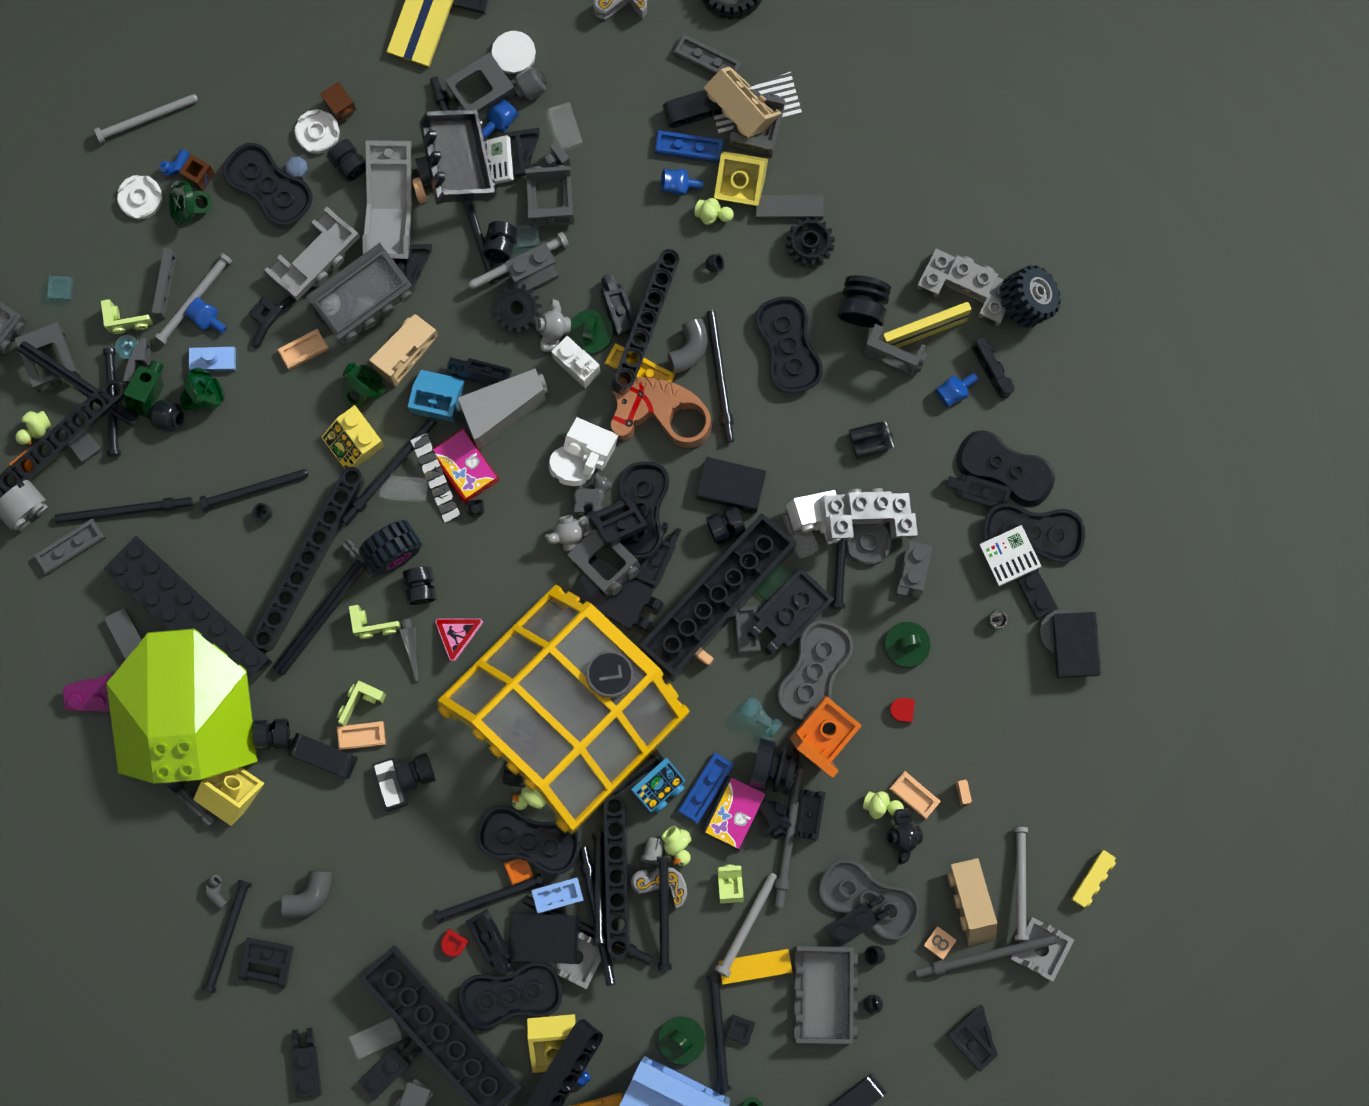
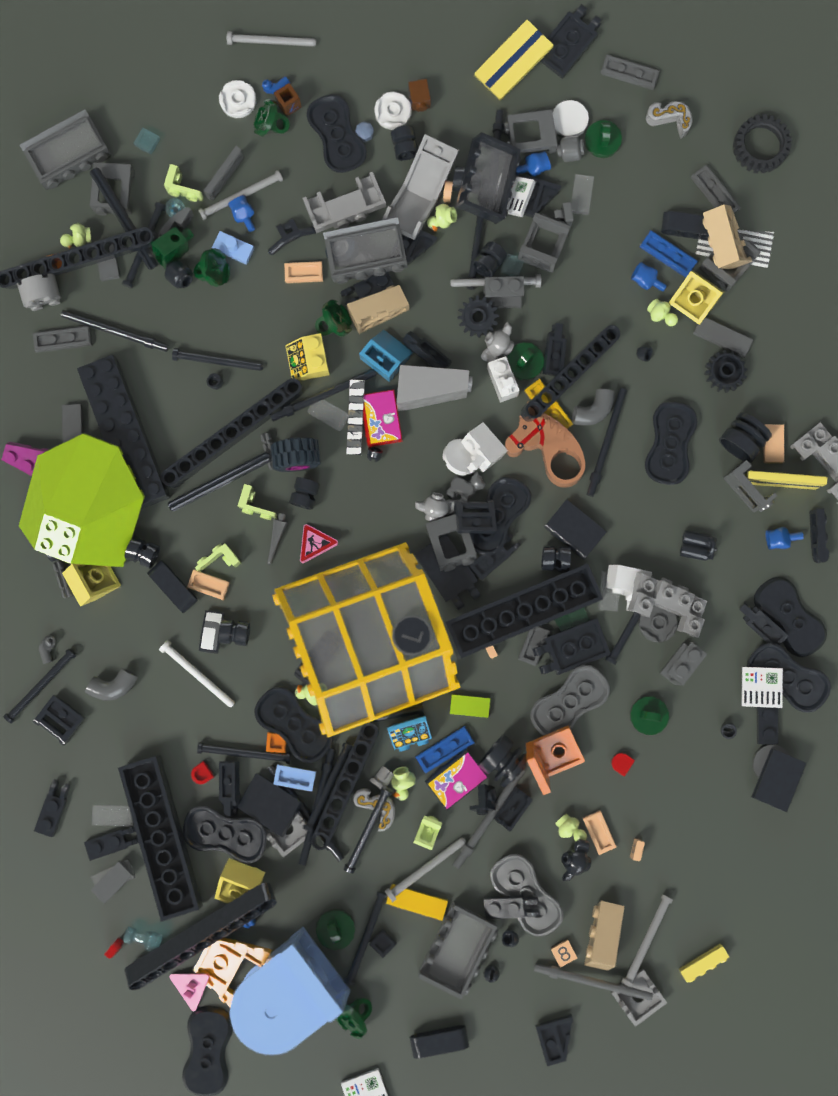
camera: 30 degrees right, 5 degrees up
(381, 333) = (368, 287): none -> black hinge
(395, 838) = (166, 647): none -> white bar
(428, 220) = (444, 217): none -> yellowish green animal
(560, 57) = (603, 138): none -> dark green tile
(710, 728) = (470, 706): none -> lime tile
(753, 711) = (509, 710): clear light blue leg -> none
(900, 295) = (774, 449): none -> light nougat tile

